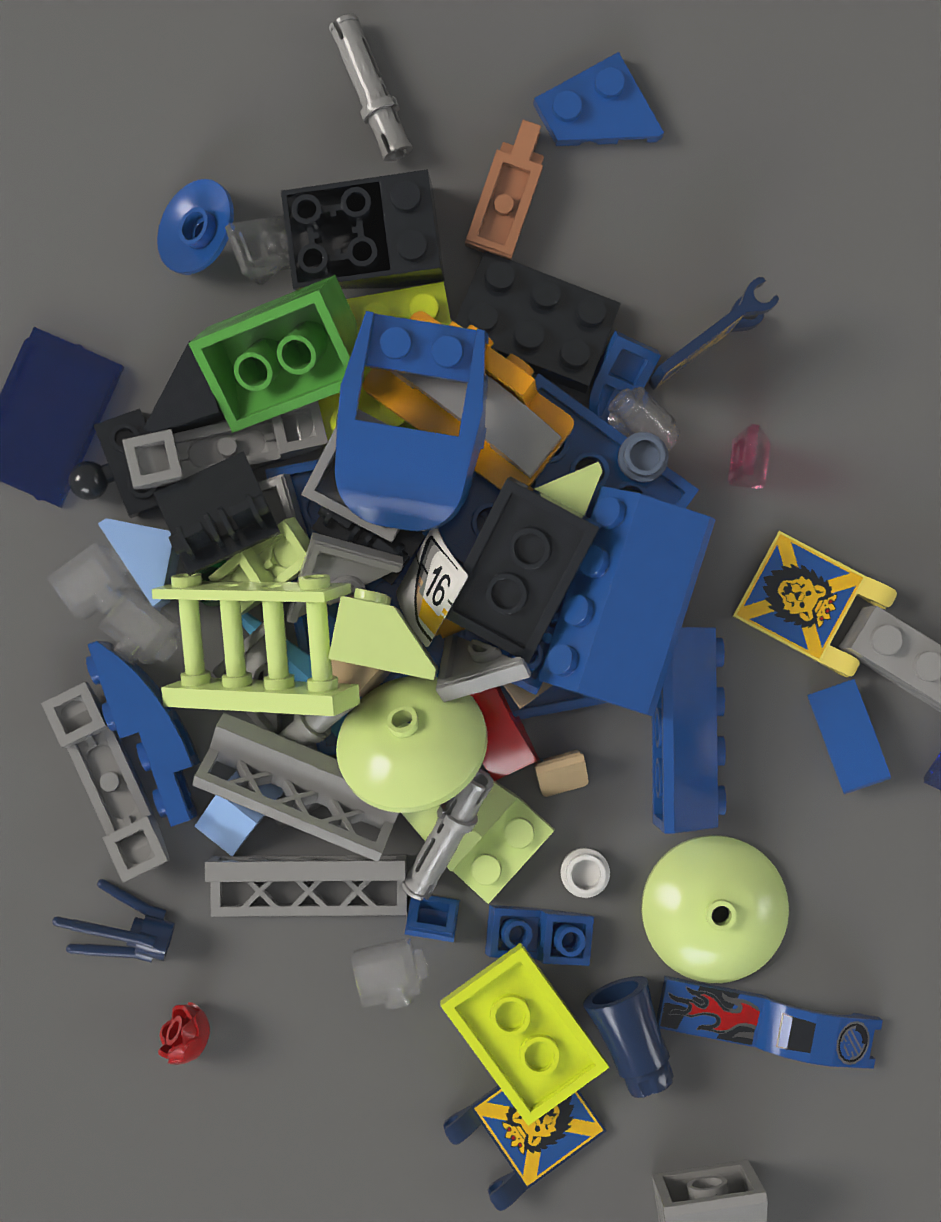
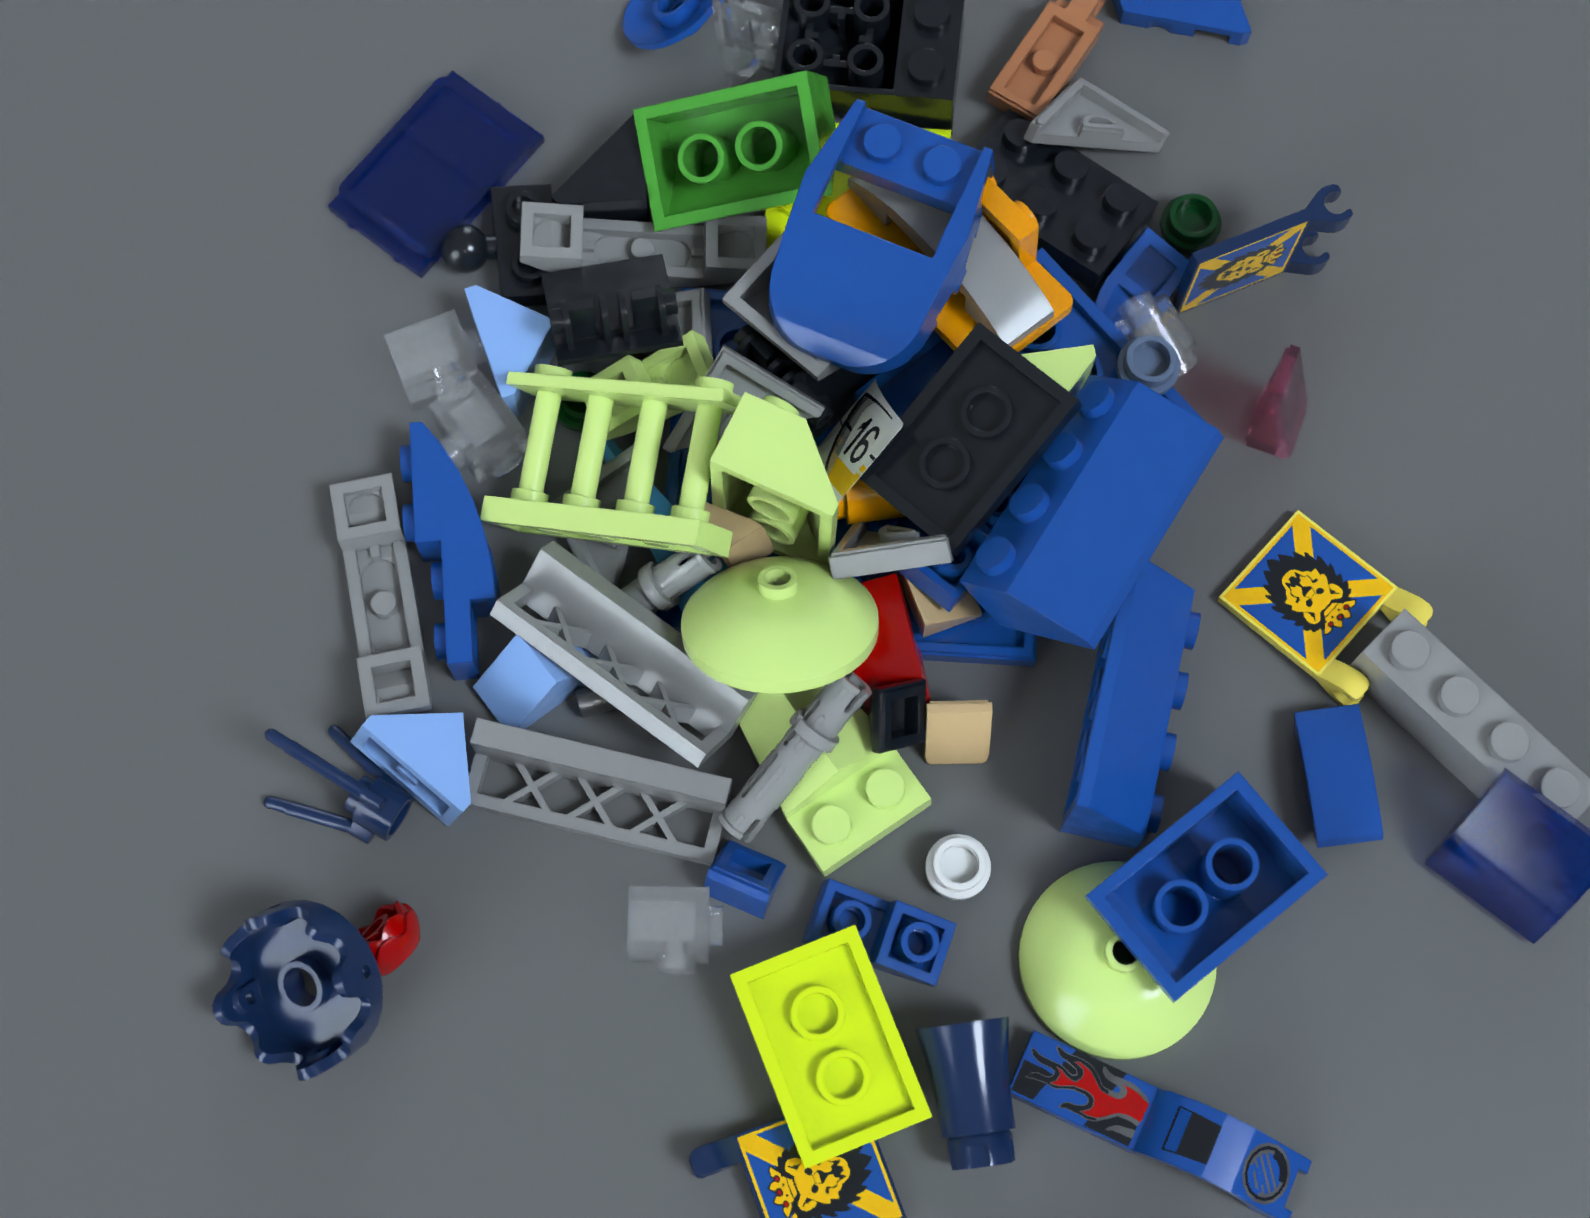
camera: 15 degrees right, 15 degrees down
(135, 1090) = (270, 995): none -> dark blue plate
(174, 894) = (422, 756): none -> light blue slope
(515, 781) = (897, 715): none -> black slope
(554, 244) = (1094, 119): none -> light grey tile
(649, 313) = (1190, 223): none -> dark green plate
(768, 855) = (1205, 886): none -> blue slope

